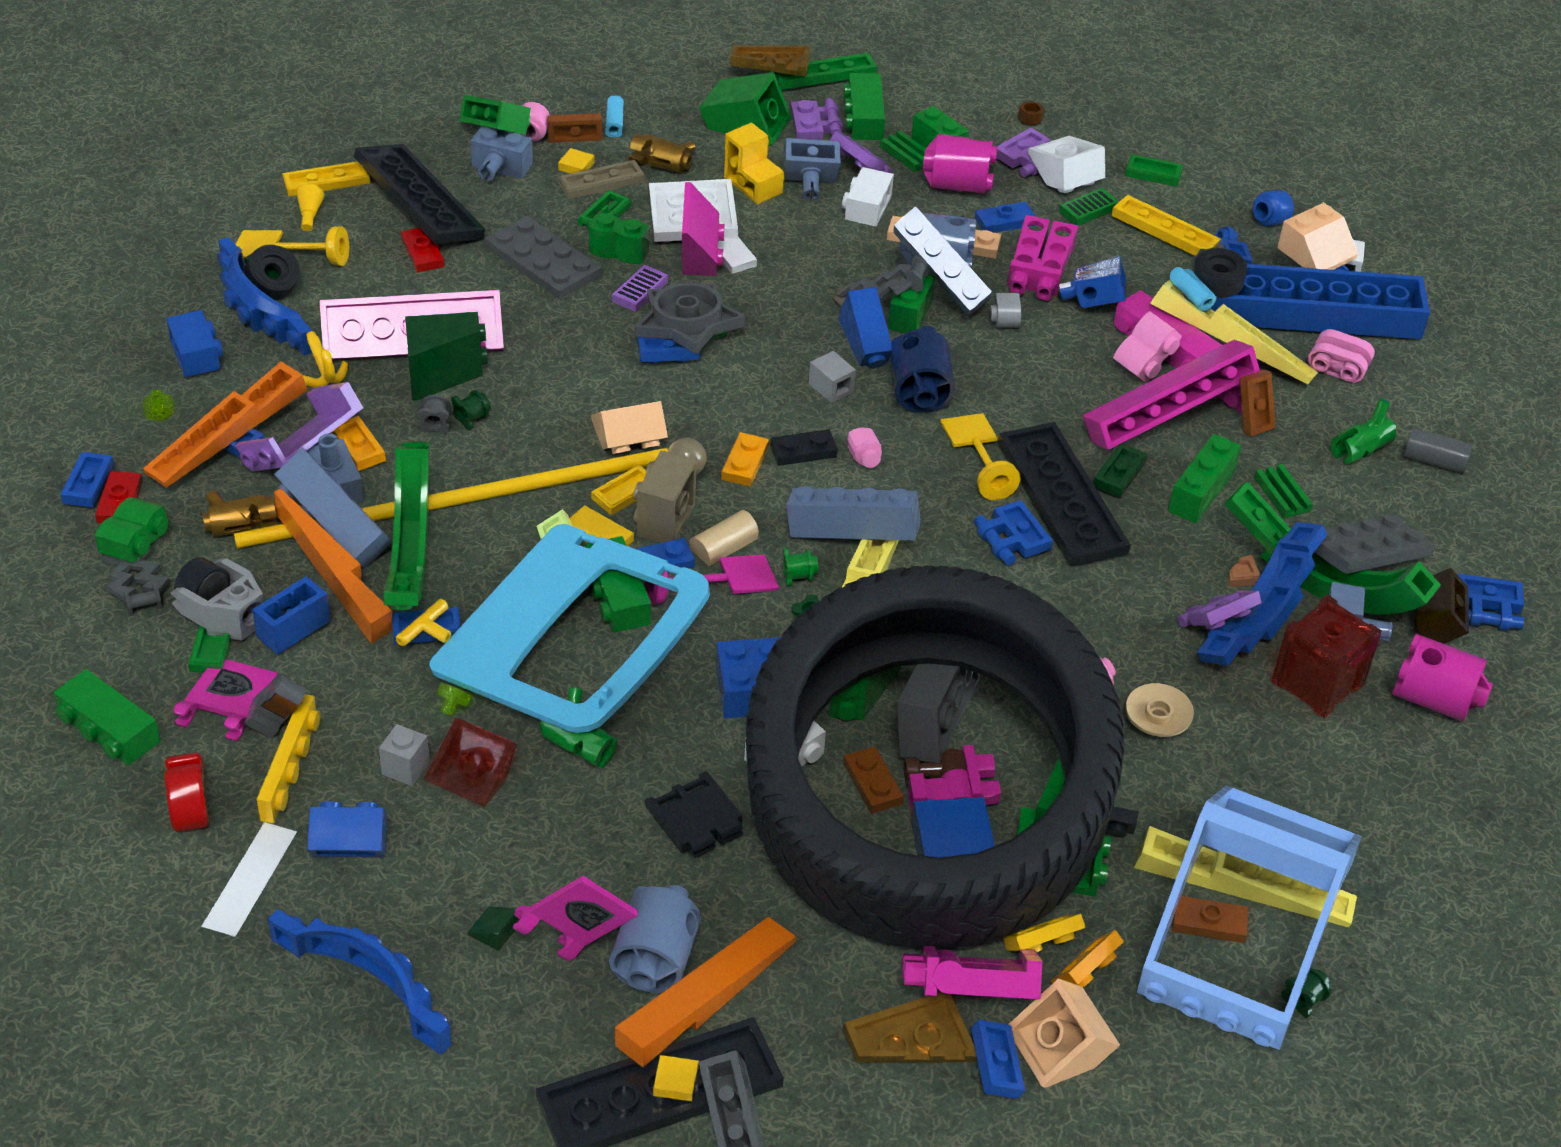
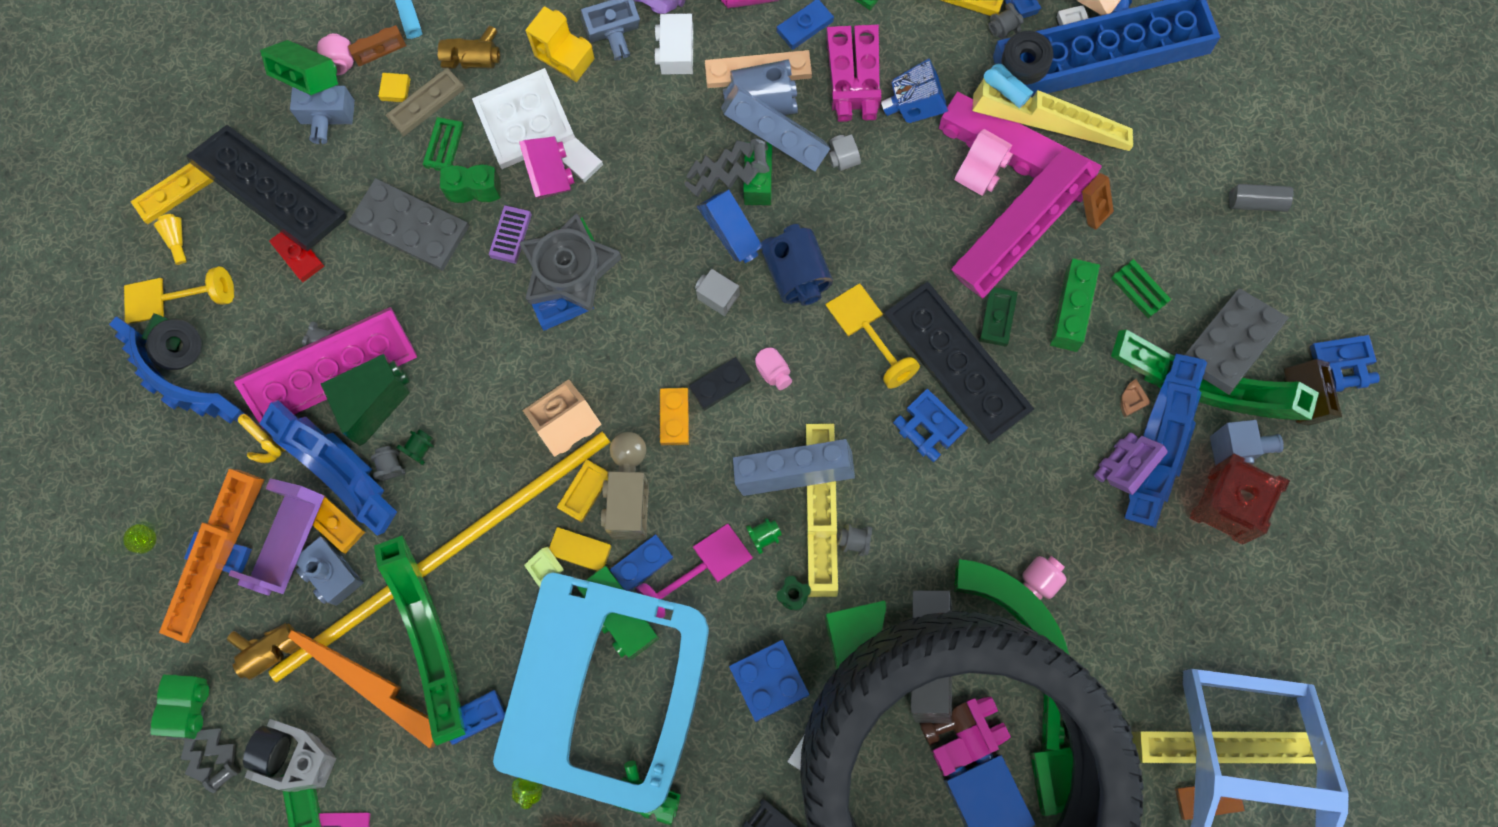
camera: 10 degrees left, 30 degrees up
(87, 479) = (114, 654): blue plate -> none
(117, 489) = (150, 660): red plate -> none
(194, 343) = (139, 458): blue brick -> none
(291, 615) = (357, 758): blue brick -> none
(332, 507) = (344, 627): sand blue brick -> none
(382, 397) = (332, 463): none -> blue piece
(426, 623) = (474, 727): yellow piece -> none
(725, 537) = (688, 520): tan brick -> none
(873, 780) = (900, 749): dark orange plate -> none
(1159, 710) = (1124, 588): tan dish -> none
(1341, 355) = (1149, 106): bright pink brick -> none
(1365, 437) = (1199, 198): green piece -> none
(1442, 678) = (1335, 481): dark pink cylinder -> none

